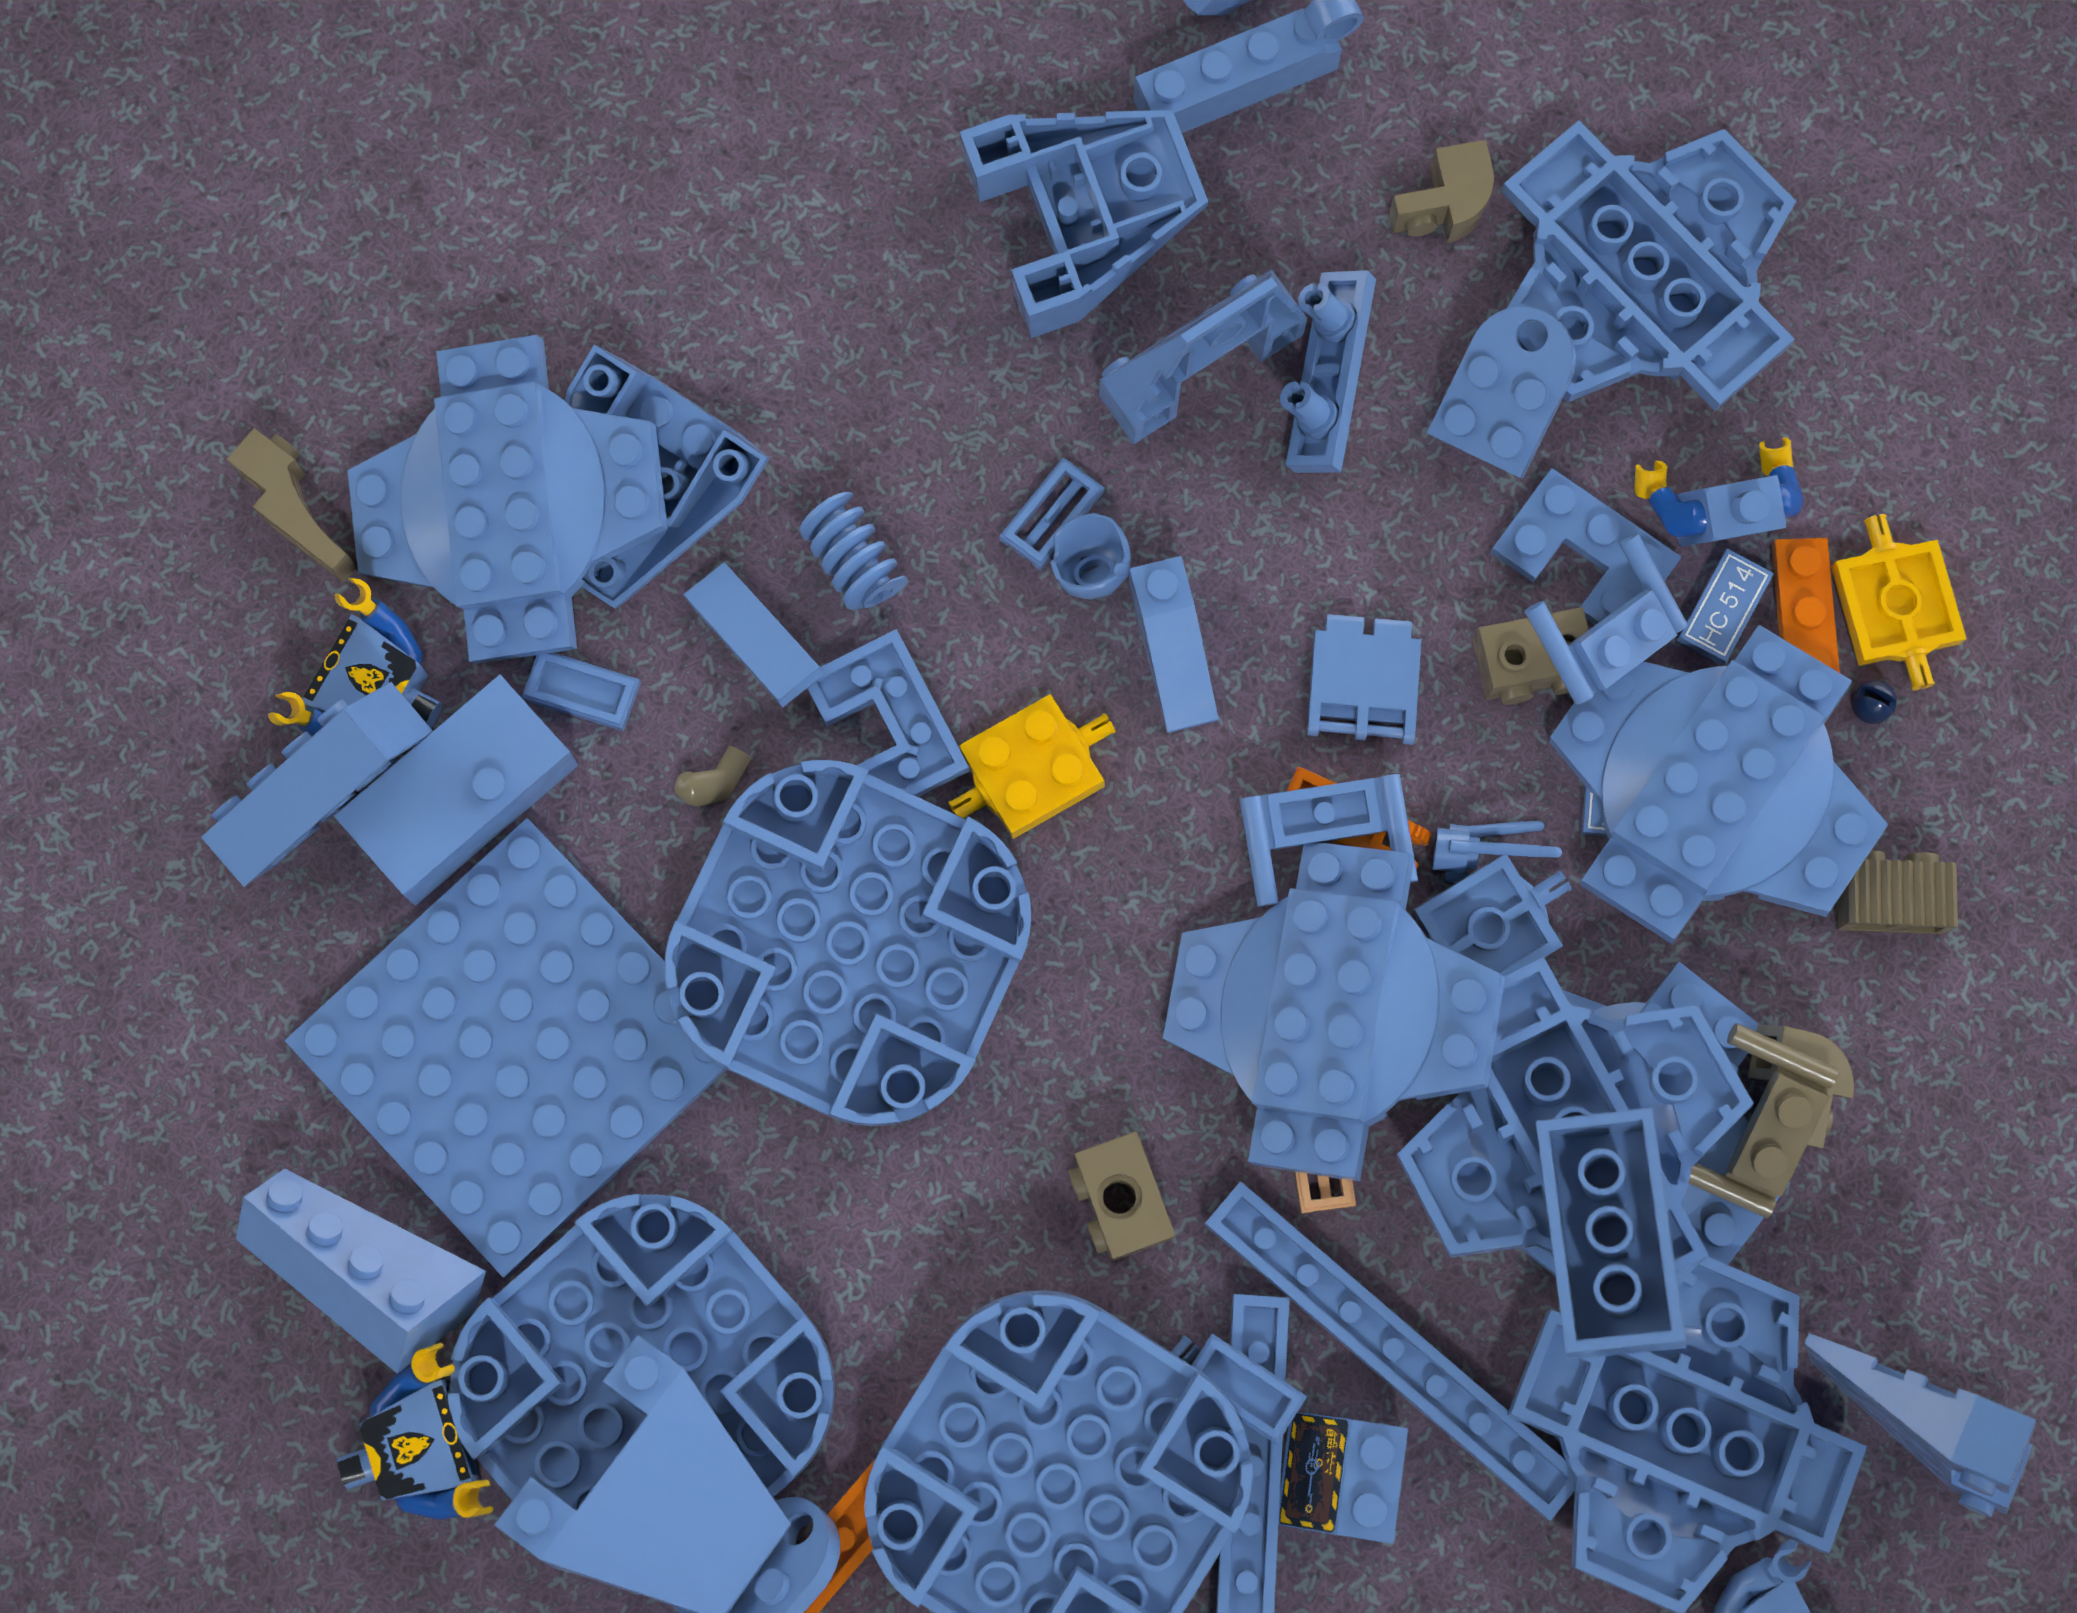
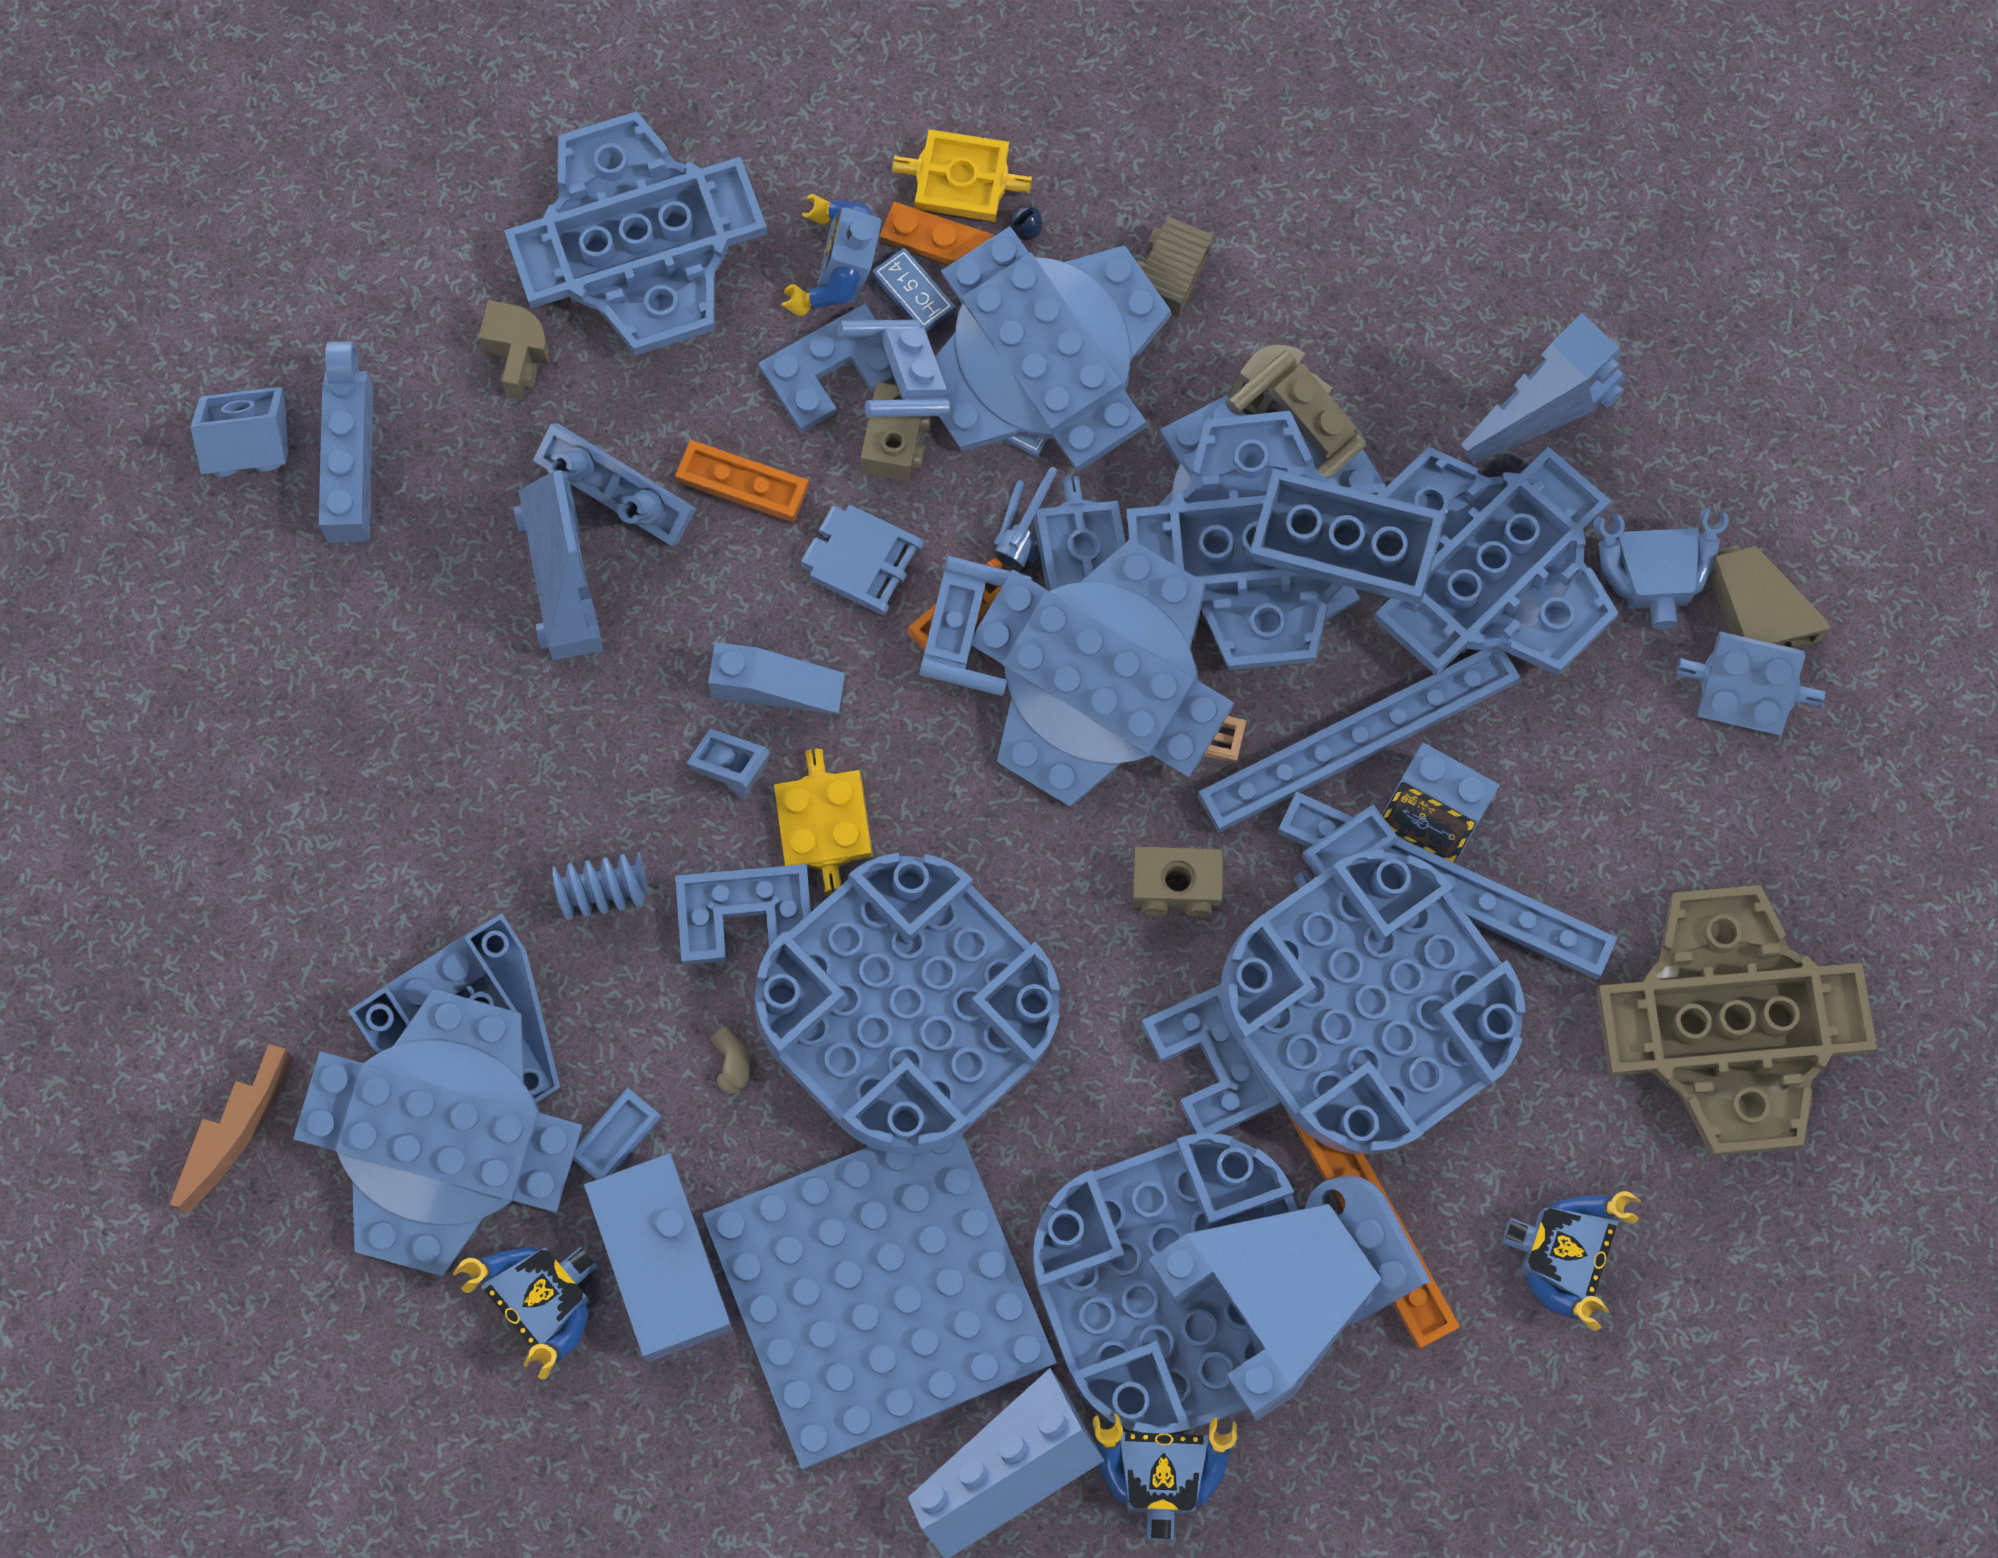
camera: 70 degrees left, 5 degrees down
(275, 473) = (326, 1313): dark tan slope -> none
(314, 781) = (611, 1361): medium blue wedge -> none
(414, 284) = (221, 1144): none -> nougat slope
(753, 634) = (631, 985): medium blue tile -> none
(894, 1367) = (1240, 1086): none -> medium blue plate
(1025, 548) = (649, 760): medium blue tile -> none
(1053, 633) = (729, 761): none -> medium blue slope
(1104, 194) = (398, 588): medium blue wedge -> none
(1104, 545) = (674, 700): medium blue hair -> none
(1398, 510) = (742, 481): none -> orange plate
(1504, 393) = (690, 368): medium blue plate -> none

